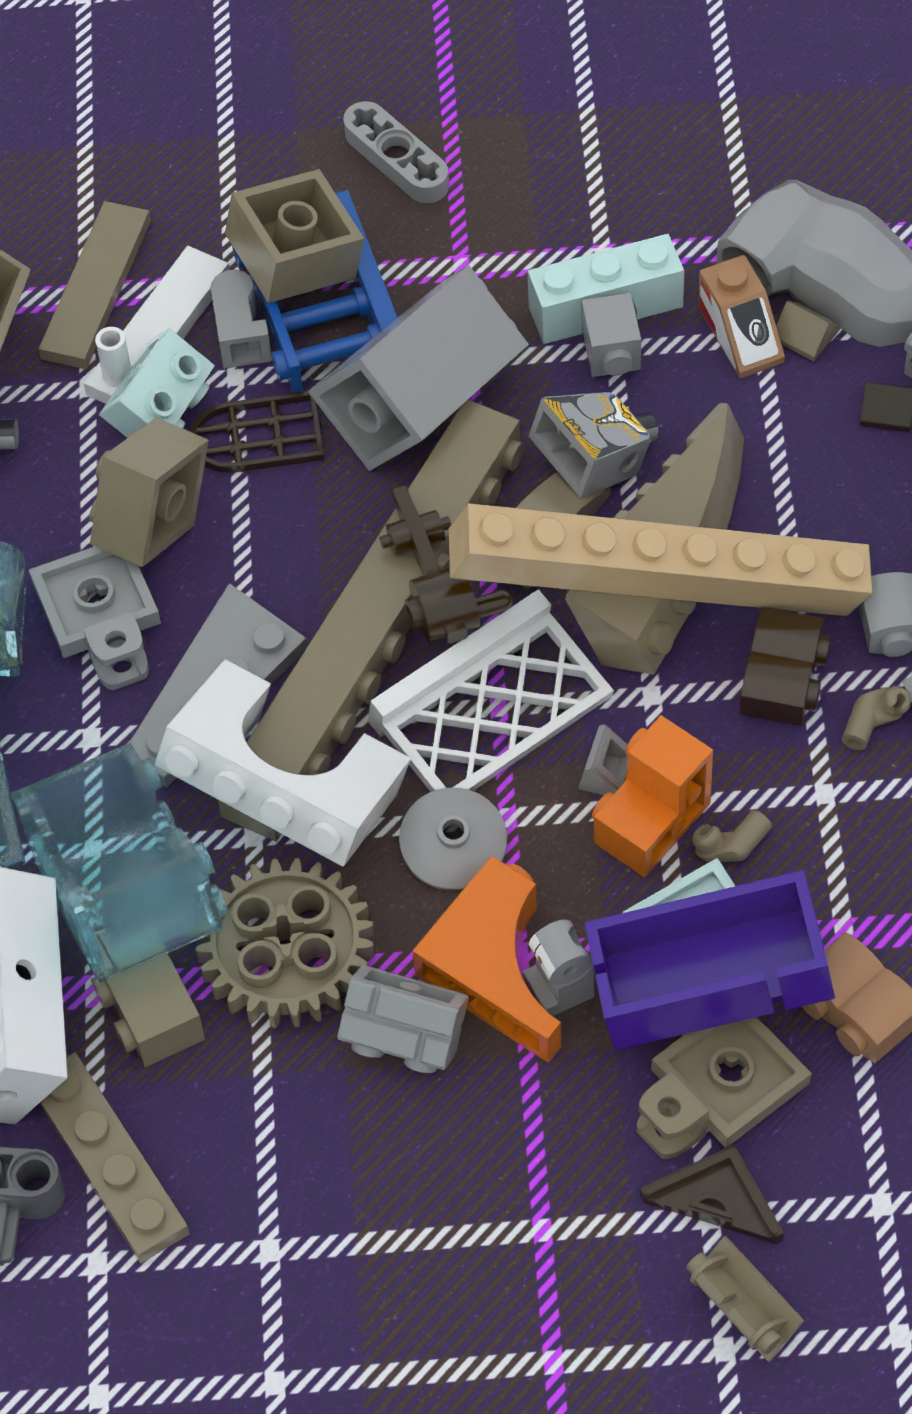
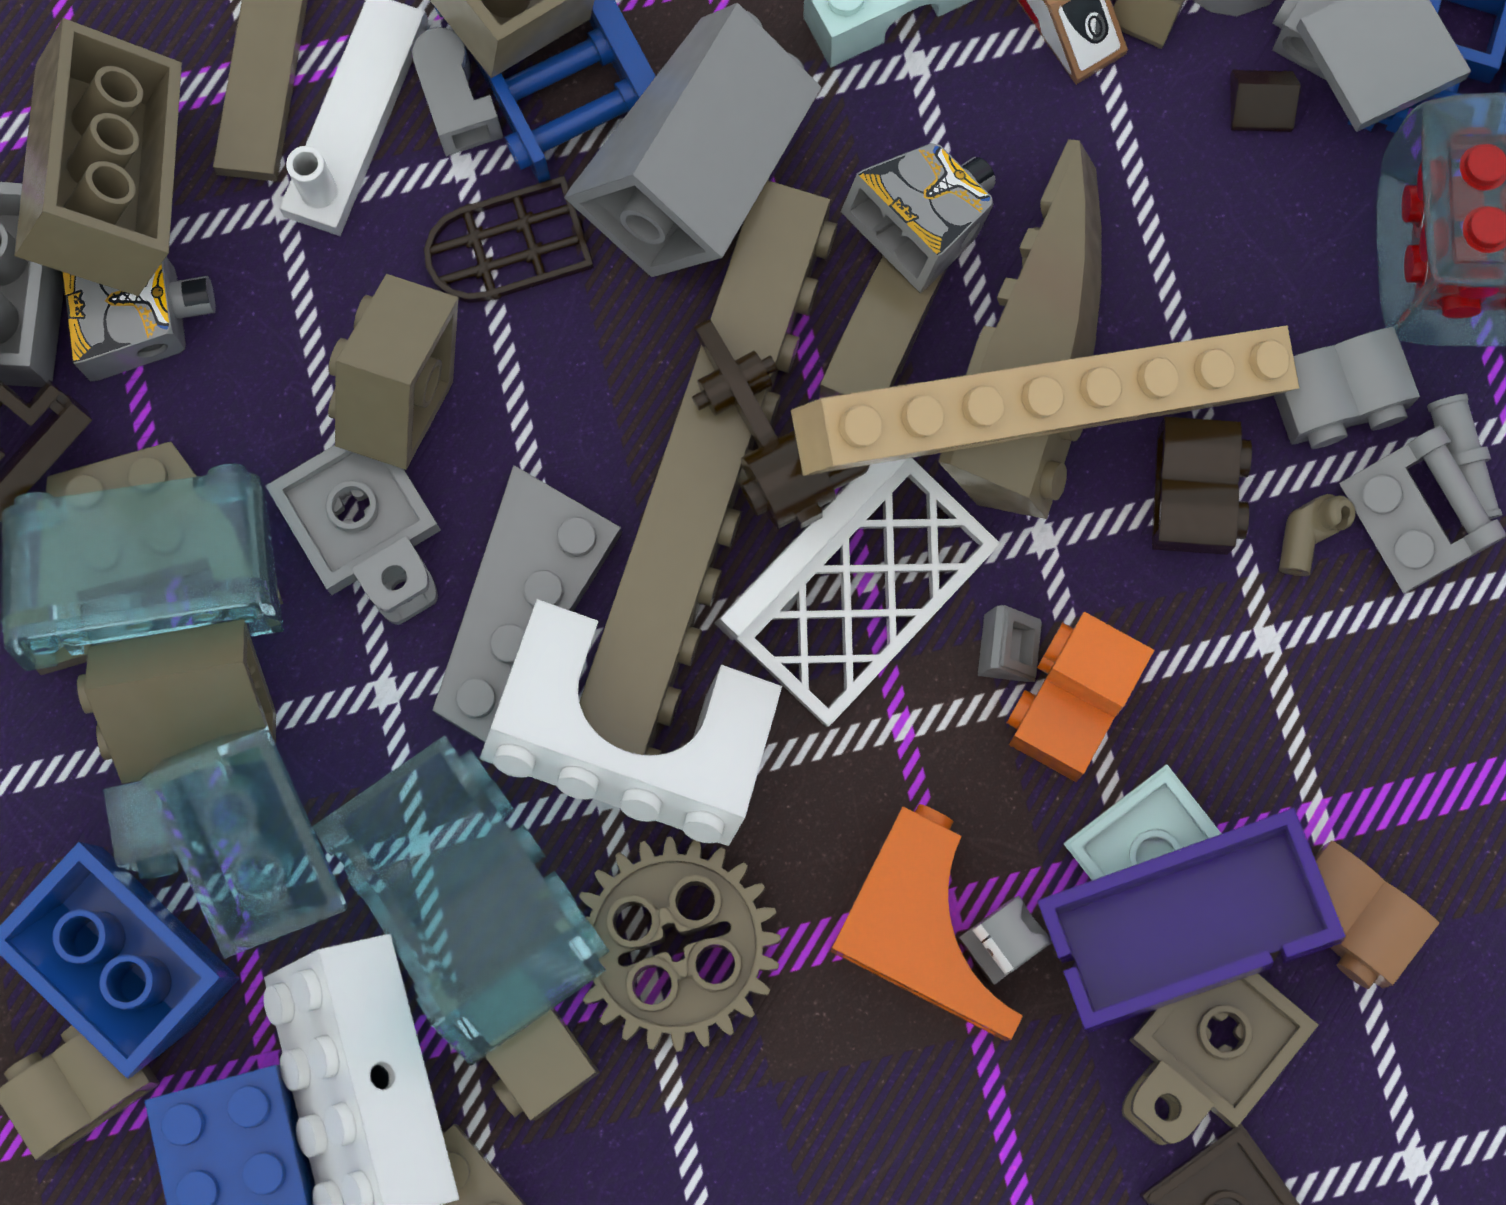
camera: 10 degrees left, 20 degrees up
(159, 385) = (375, 212): light aqua brick -> none
(402, 1019) = (835, 1030): light grey brick -> none
(448, 862) = (811, 765): light grey dish -> none
(611, 334) = (918, 56): light grey brick -> none
(733, 845) = (1174, 730): dark tan arm -> none

